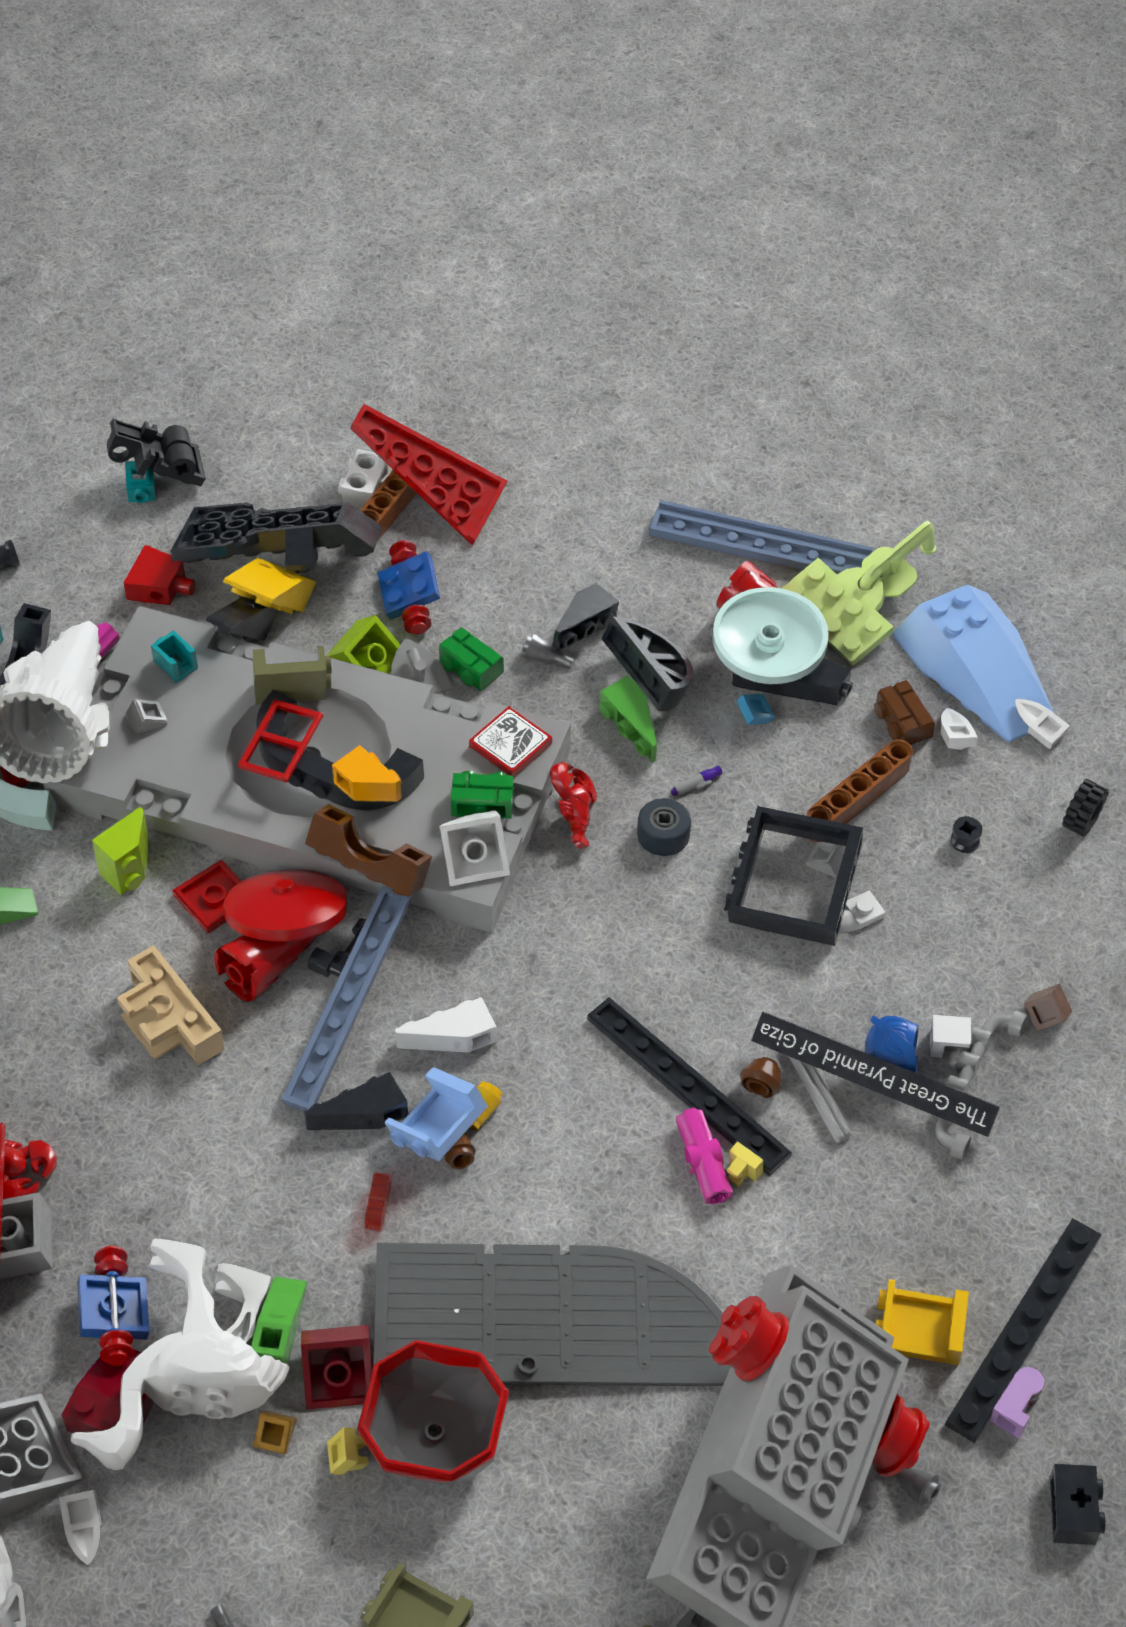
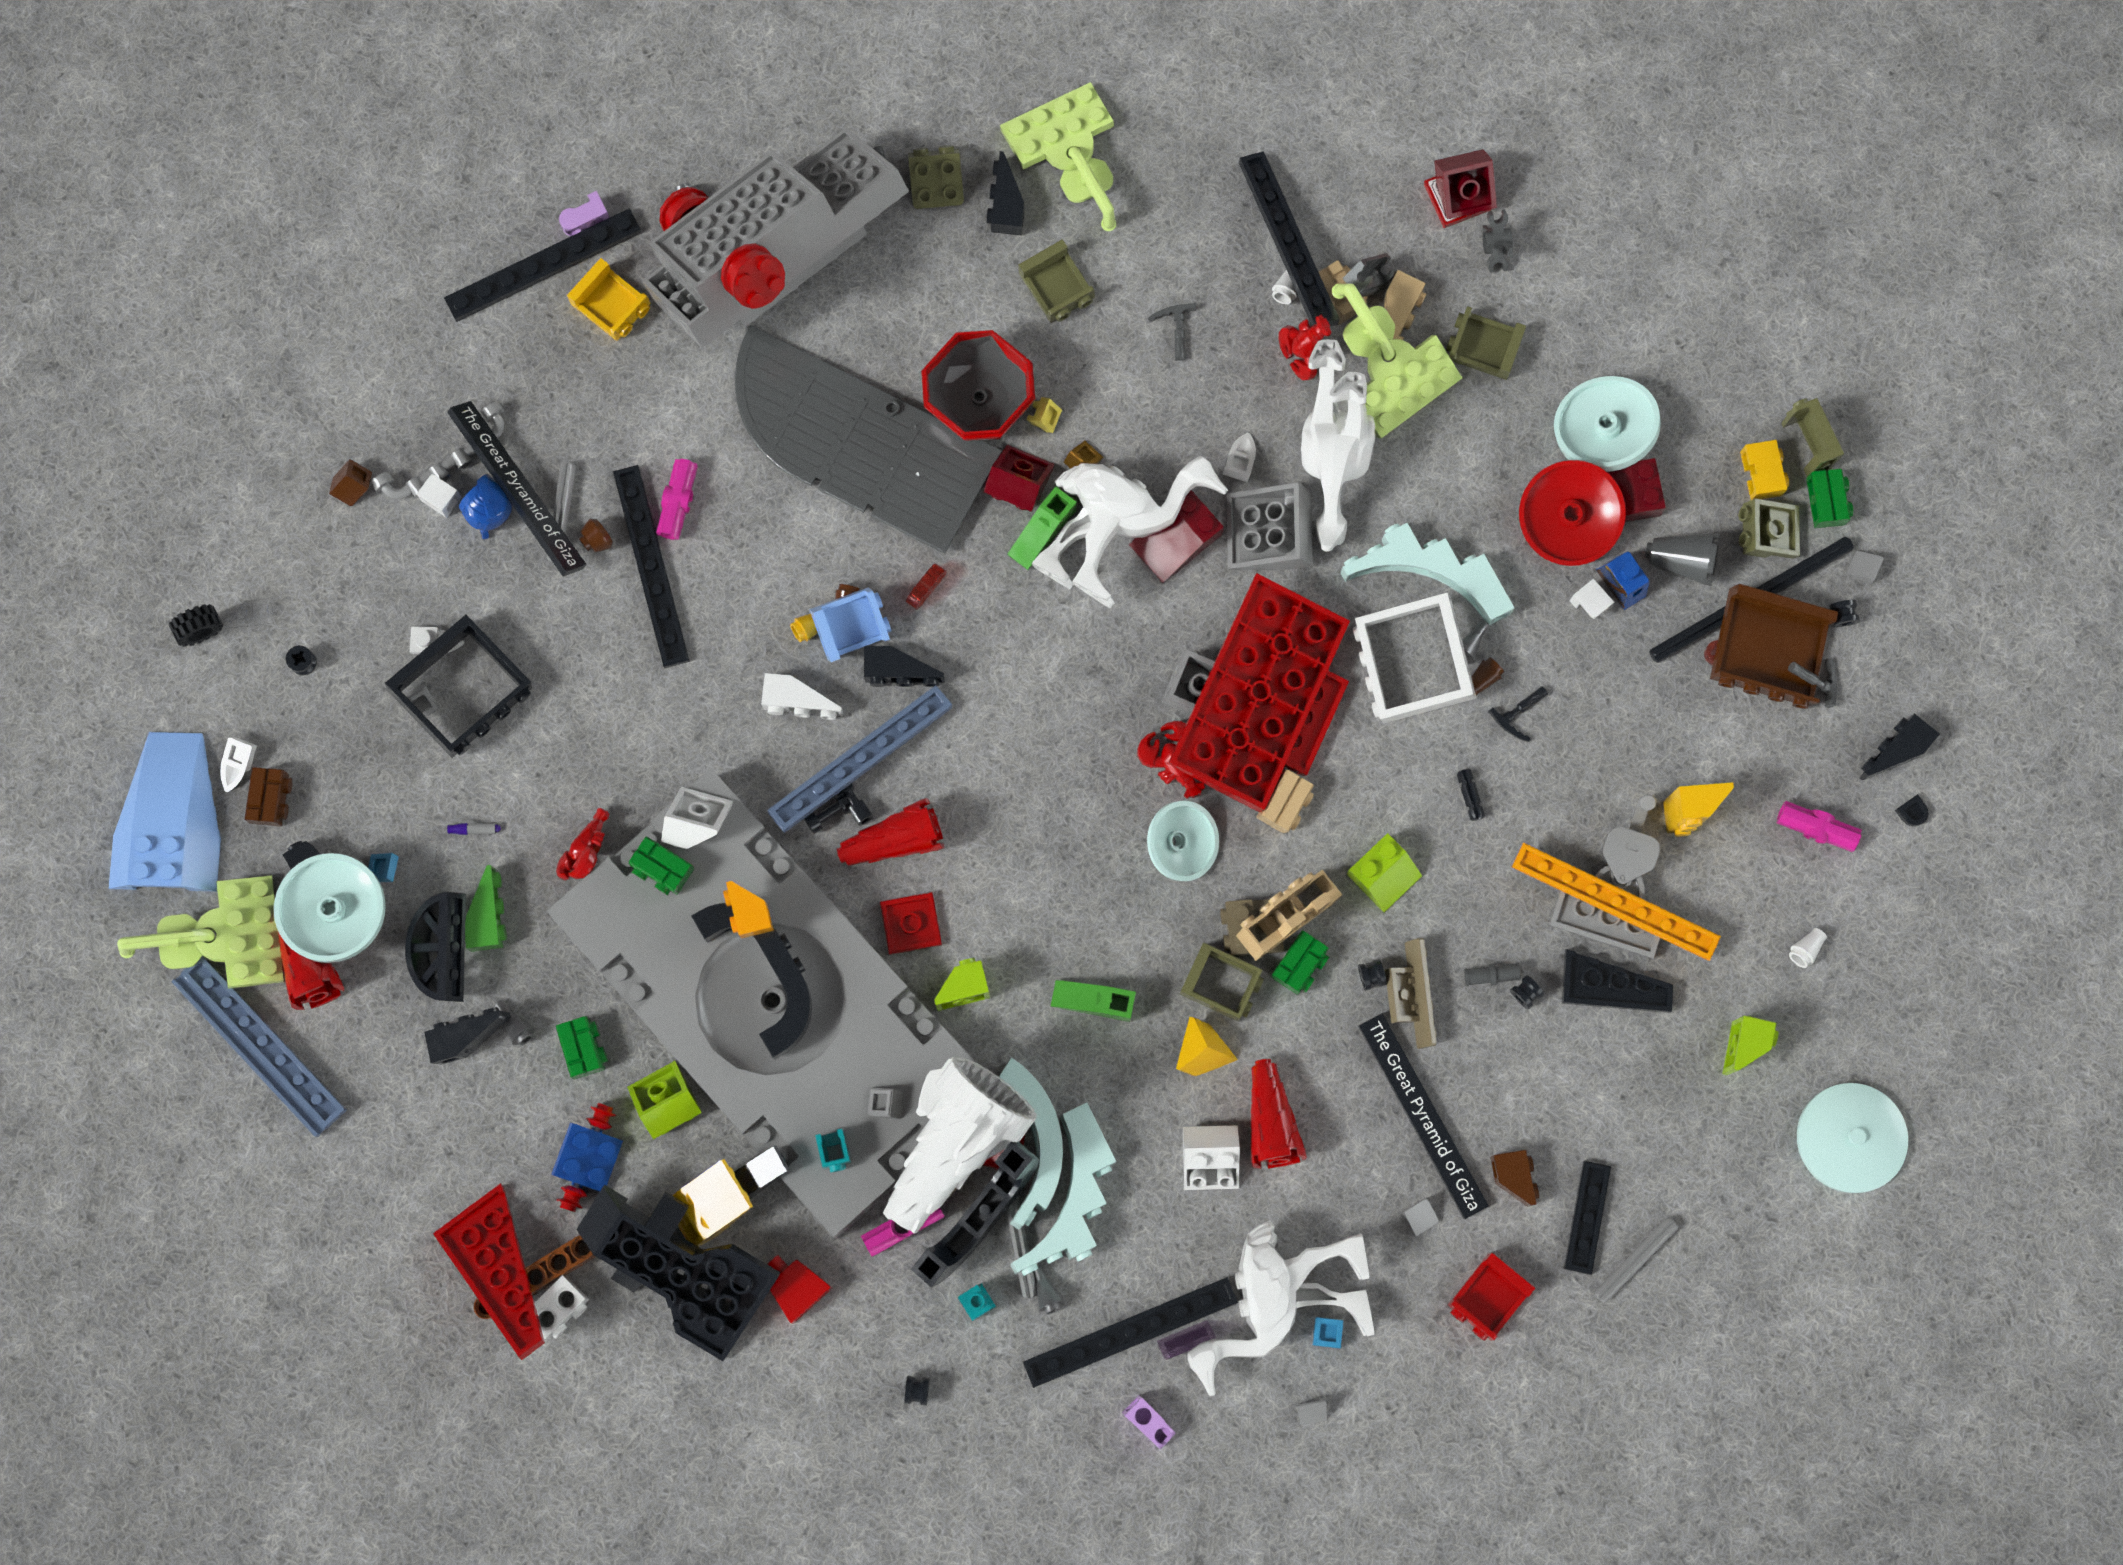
camera: 150 degrees left, 25 degrees up
(113, 1306) = (1151, 597): plate -> none
(139, 489) = (750, 1428): teal window -> none
(166, 453) = (724, 1430): black plate -> none
(166, 1012) = (1002, 823): tan piece -> none
(261, 734) = (806, 1012): red window -> none
(285, 905) = (865, 862): red dish -> none
(295, 679) = (754, 1056): olive panel -> none
(336, 836) = (766, 827): reddish brown arch -> none
(420, 665) = (632, 1062): light grey shield -> none
(510, 741) = (606, 913): tile -> none
(664, 827) = (533, 801): black wheel -> none
(743, 1164) = (654, 476): light yellow tile -> none
(864, 784) = (343, 741): dark orange beam -> none
(1042, 722) = (165, 728): white plate -> none
(1070, 1523) = (597, 144): black brick -> none

